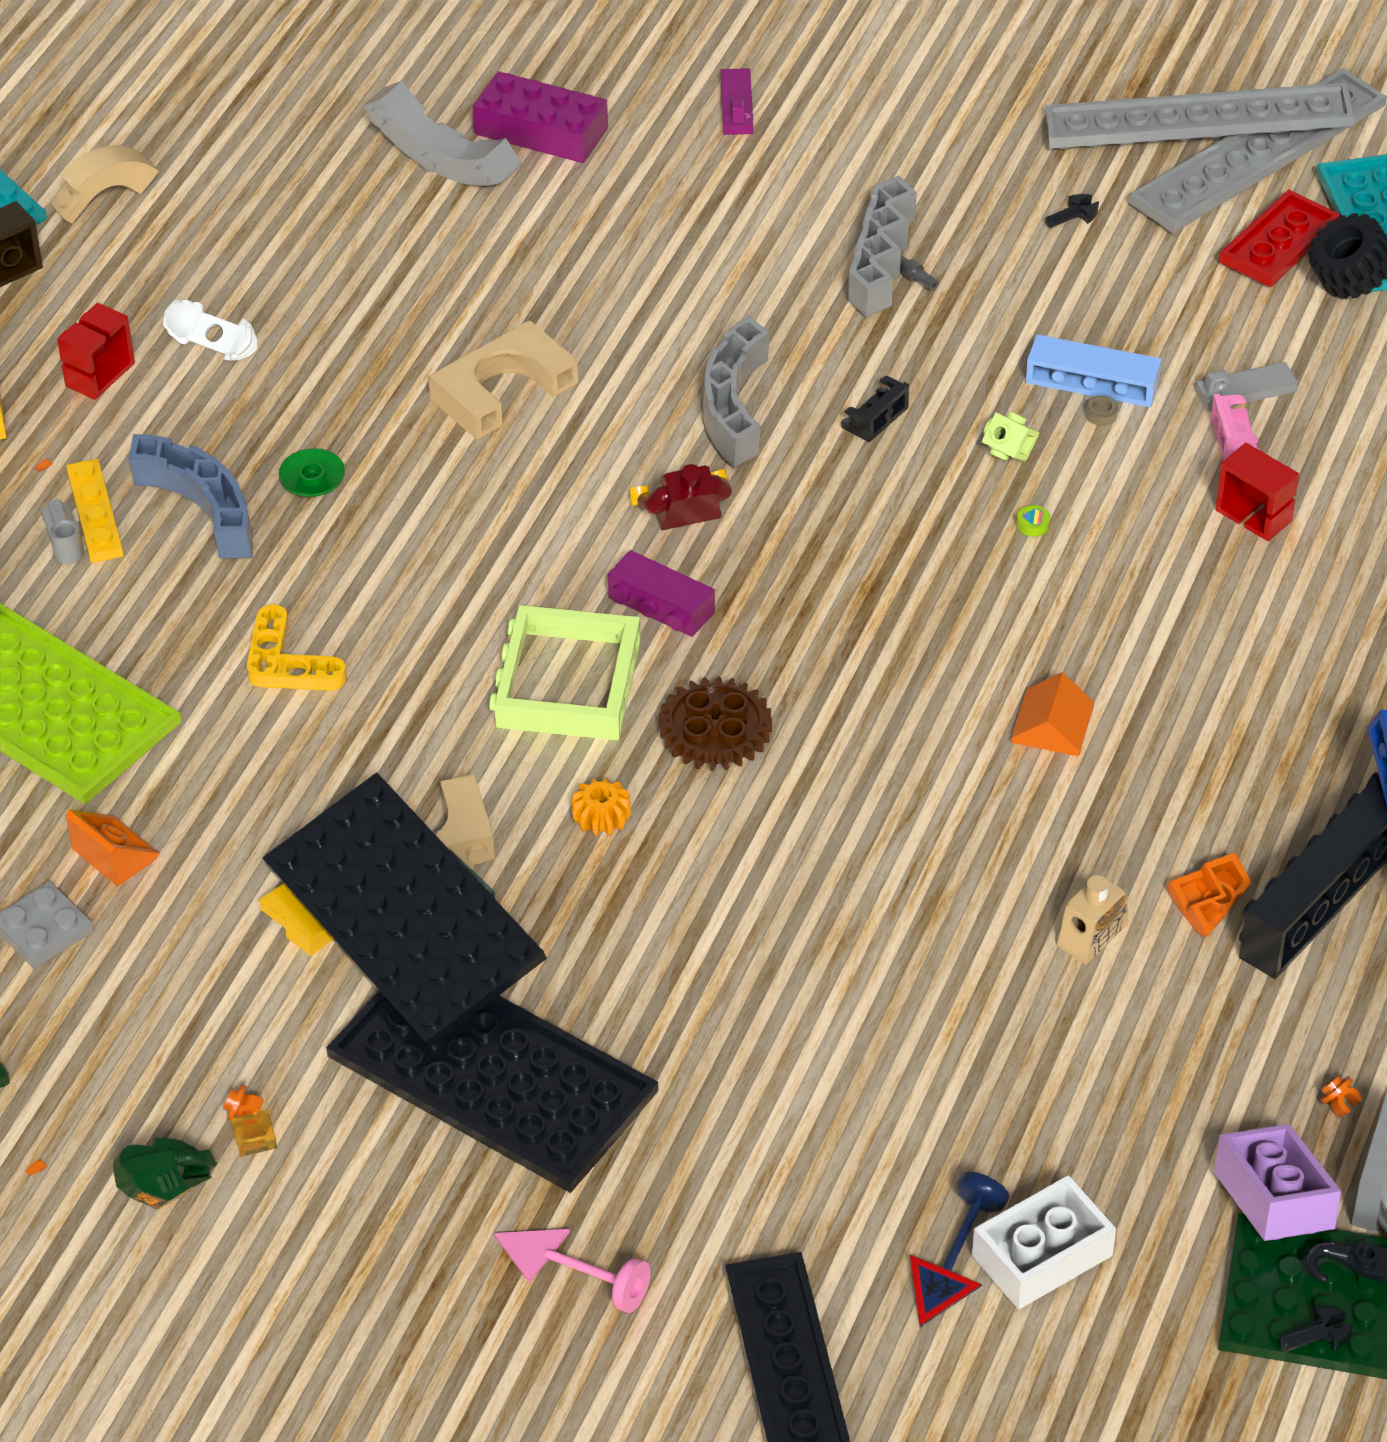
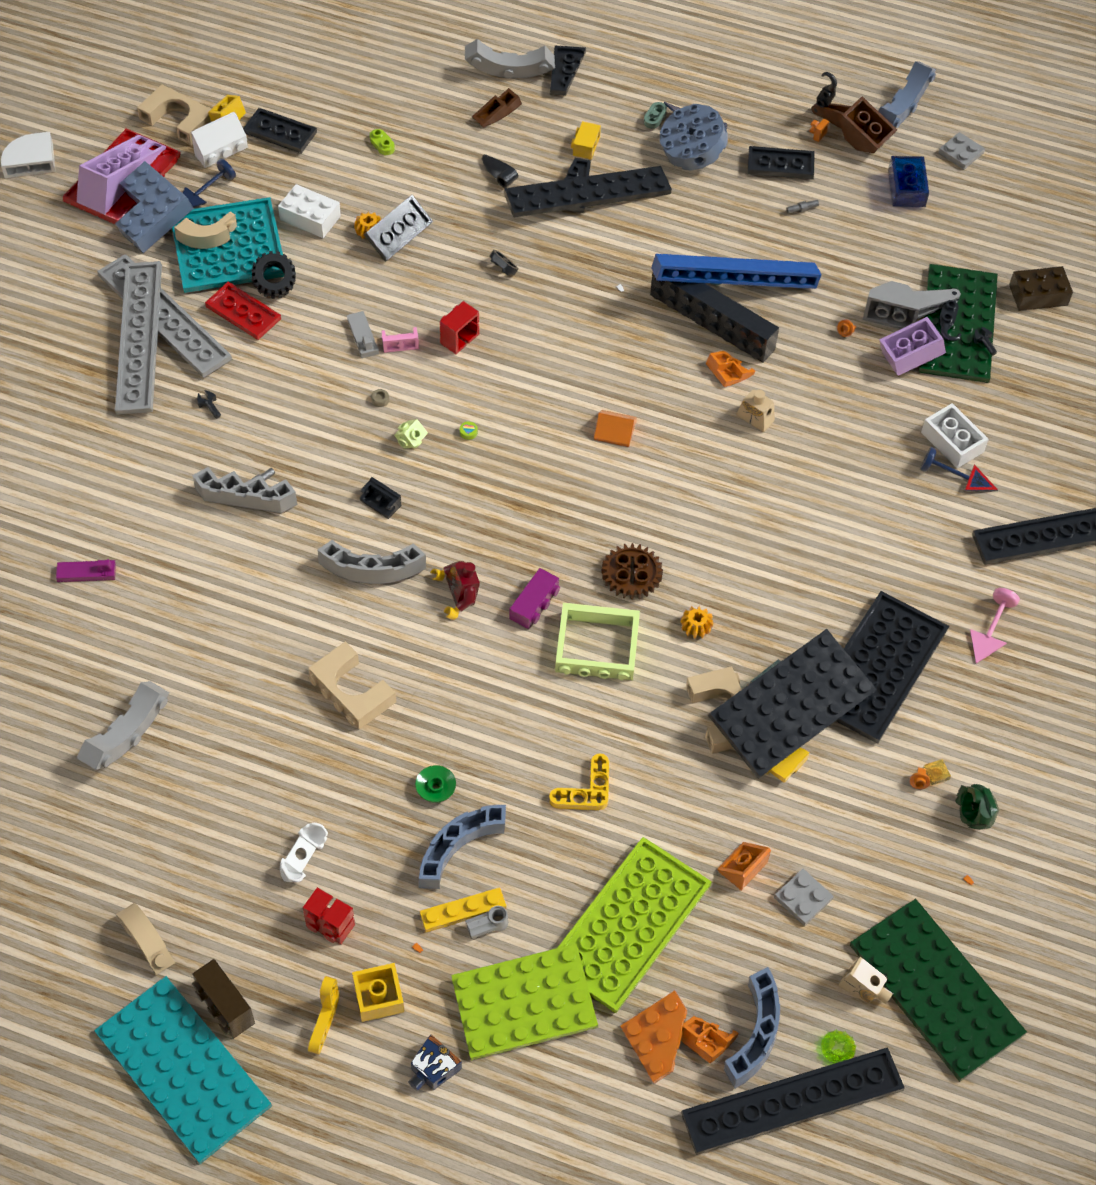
camera: 95 degrees left, 10 degrees up
(540, 116) = (98, 675): magenta brick -> none
(1093, 370) = (352, 397): light blue brick -> none

